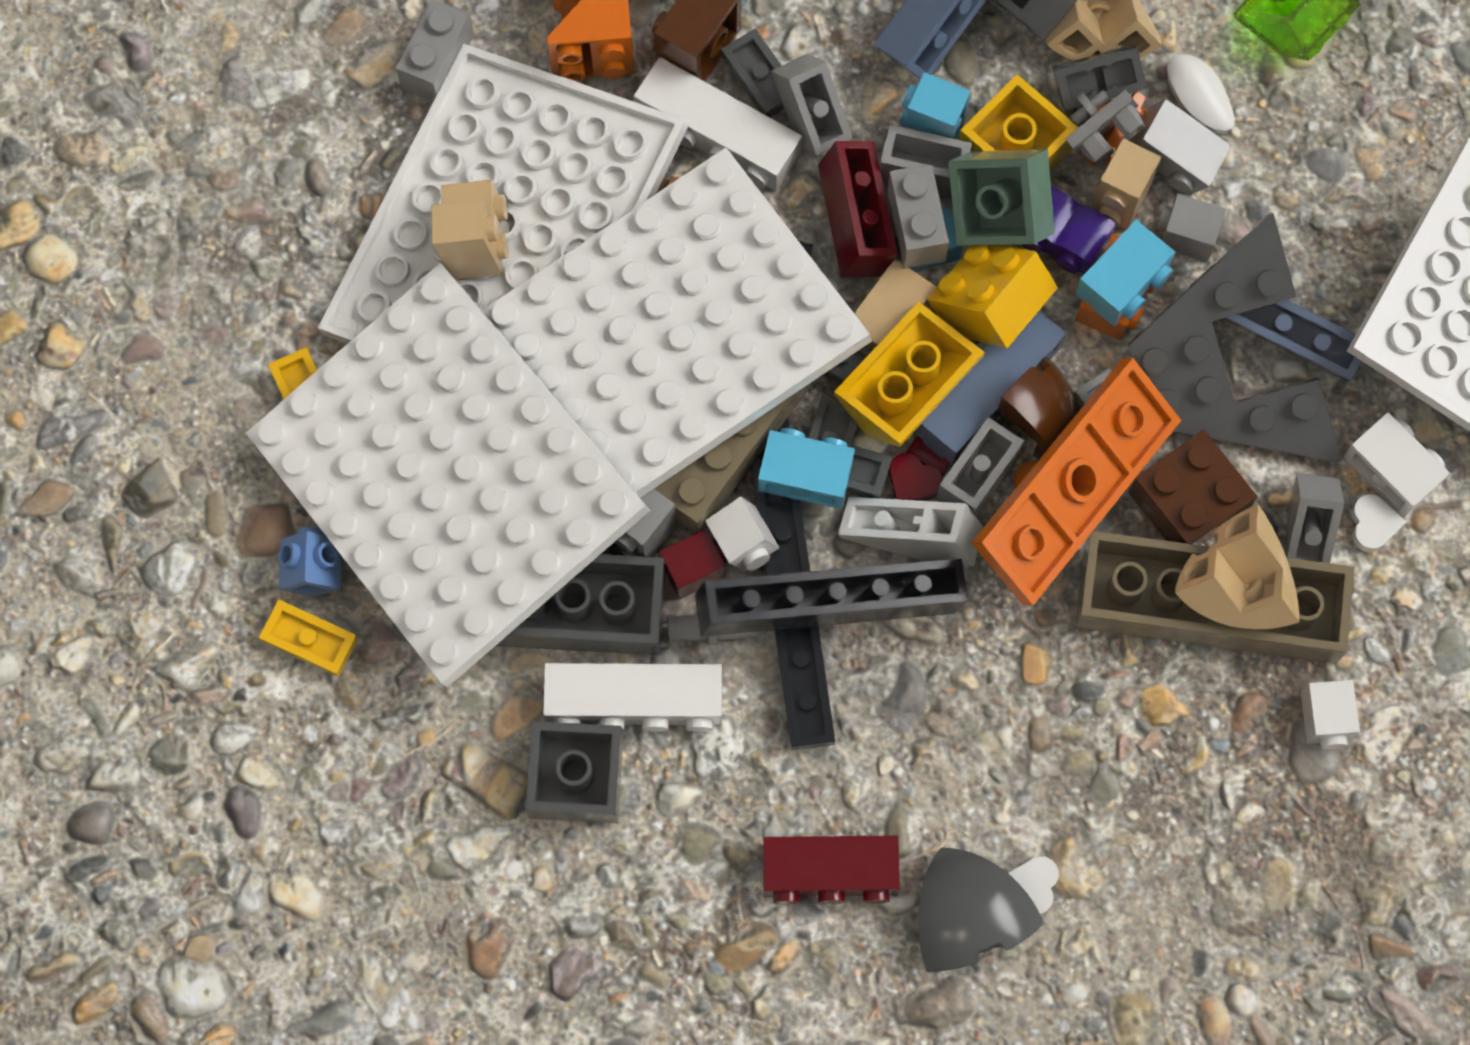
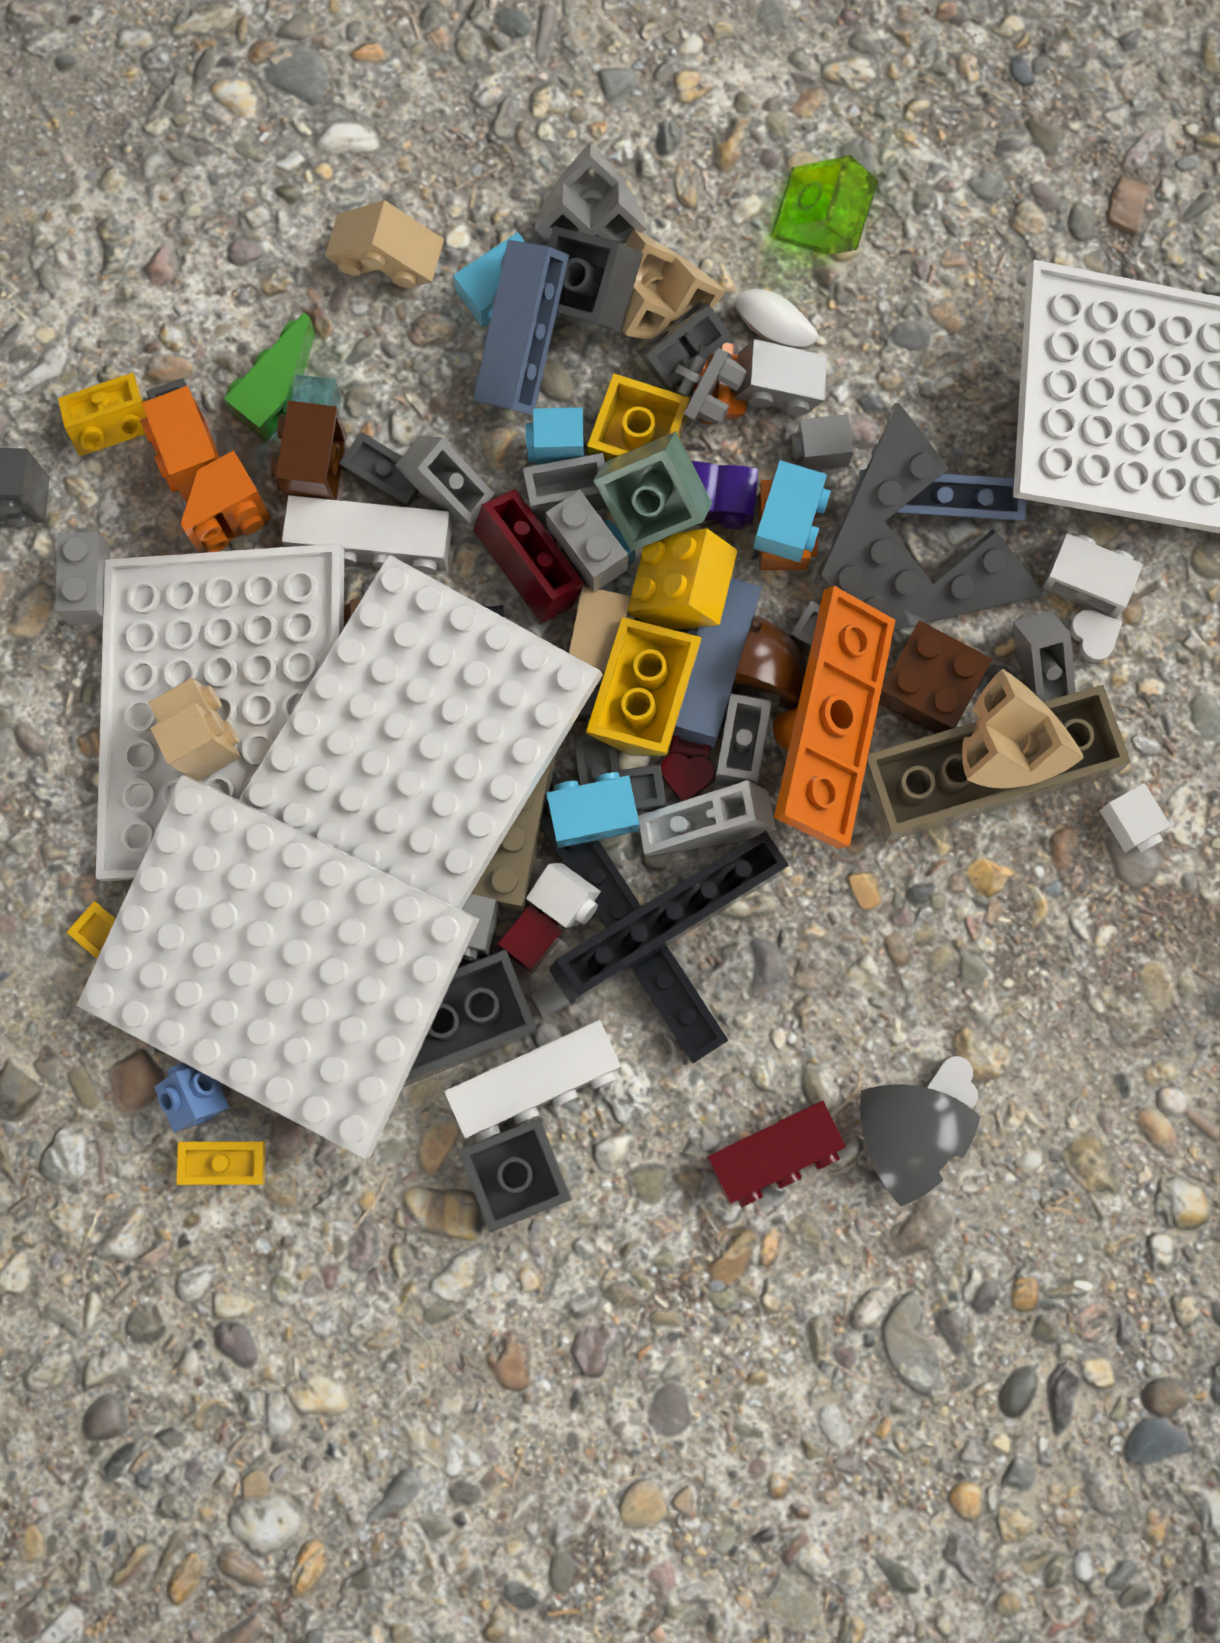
camera: 25 degrees left, 5 degrees up
(1125, 183) = (752, 429): tan brick -> none

